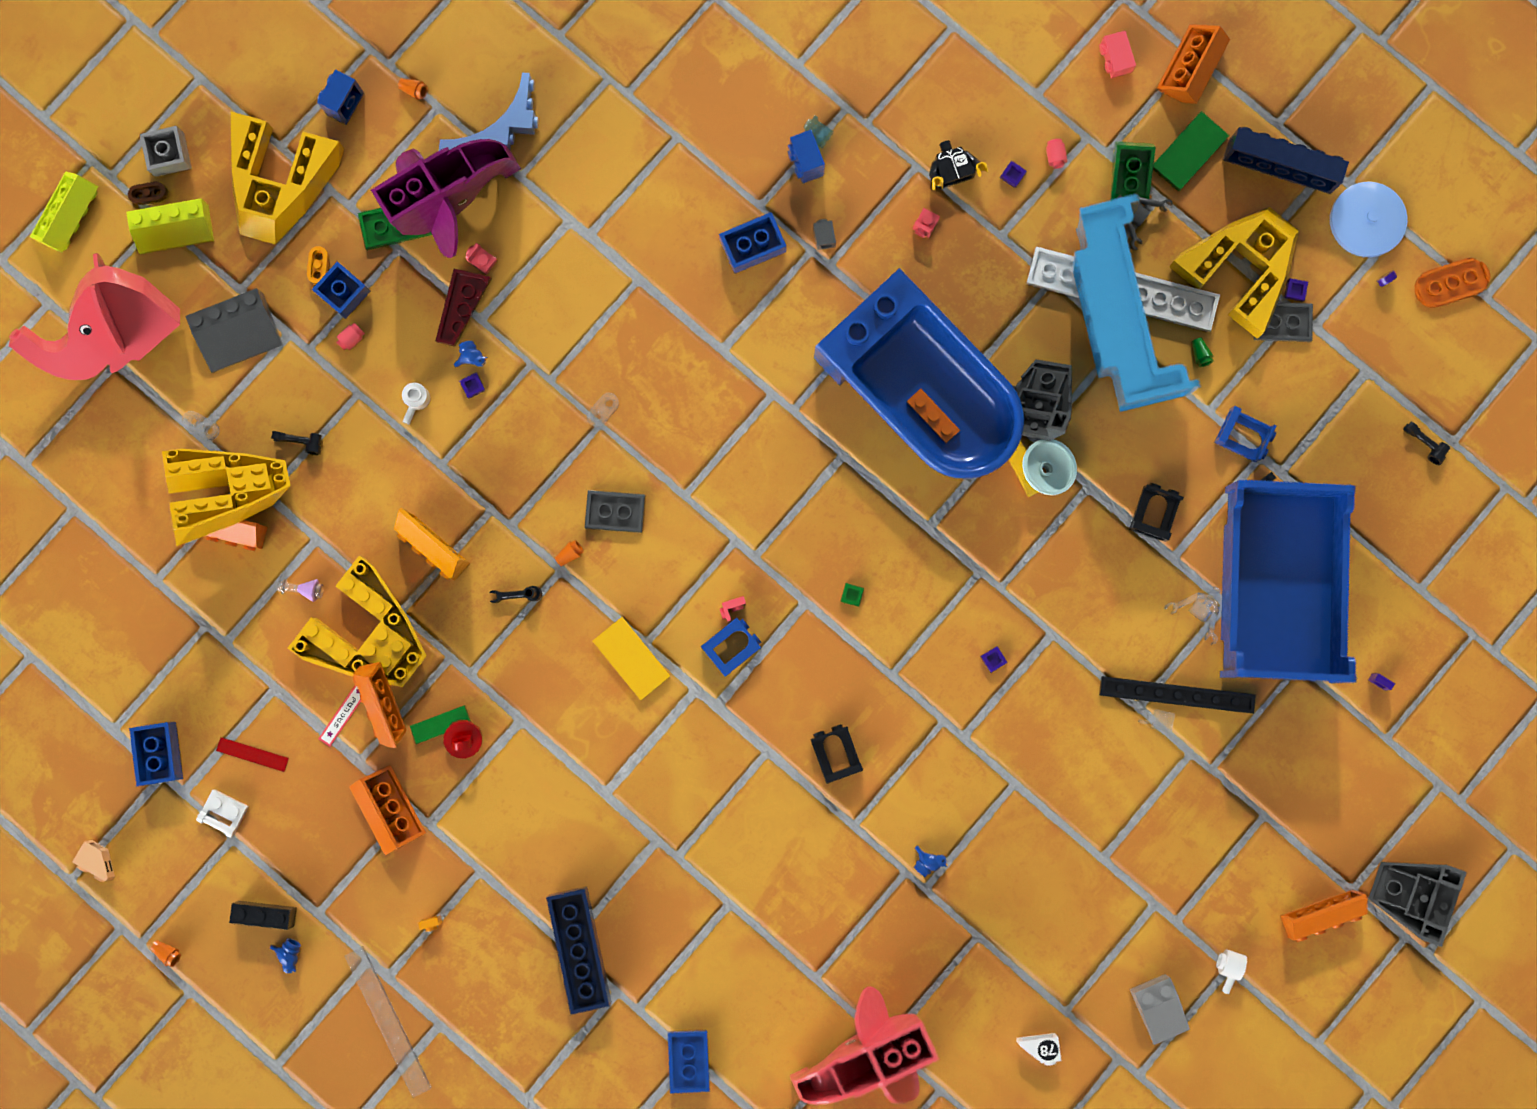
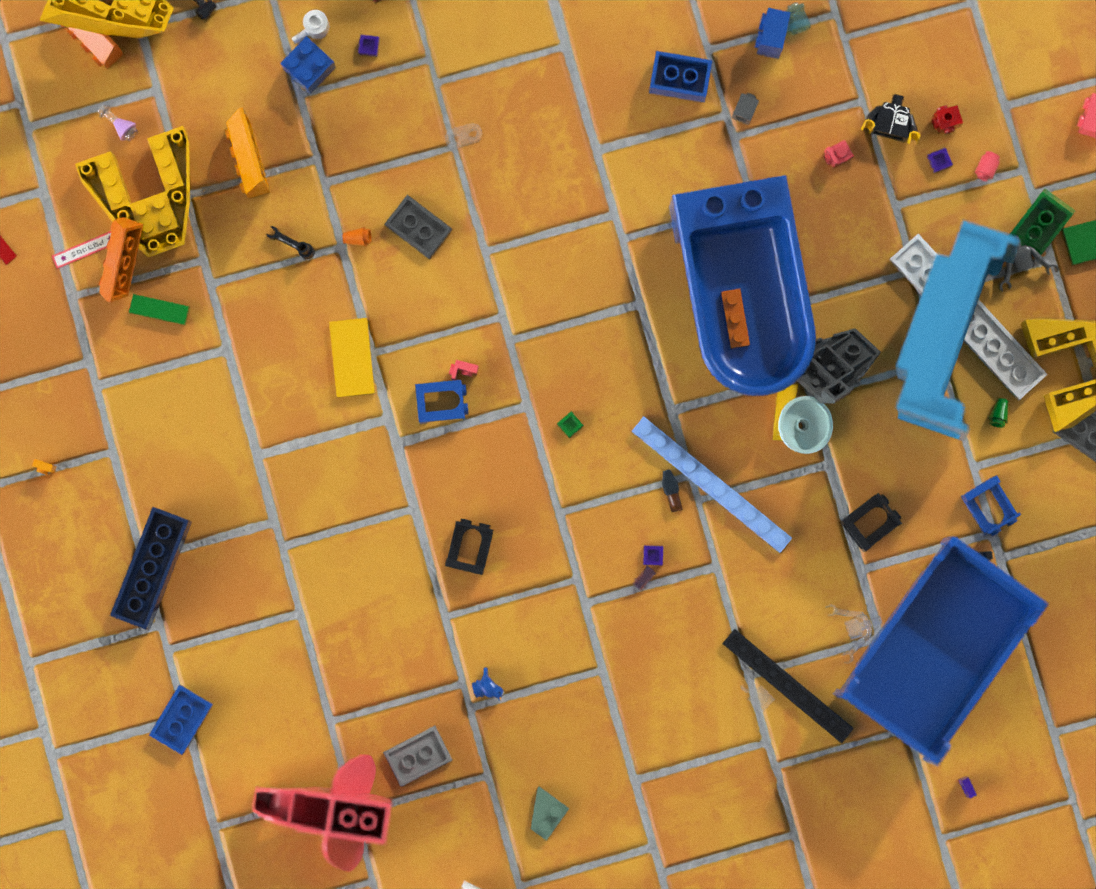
camera: 30 degrees right, 0 degrees up
(387, 809) = (70, 350): orange slope -> none
(431, 435) = (308, 65): none -> blue brick
(462, 739) = (169, 333): red tile -> none
(470, 355) = (383, 19): blue animal -> none
(908, 959) = (417, 756): none -> light grey tile
(973, 595) = (671, 489): none -> black piece
(997, 136) = (947, 119): none -> red brick
(999, 683) = (642, 580): none -> pin
(1003, 568) = (711, 484): none -> light blue plate
(1048, 935) = (547, 813): none -> sand green wing

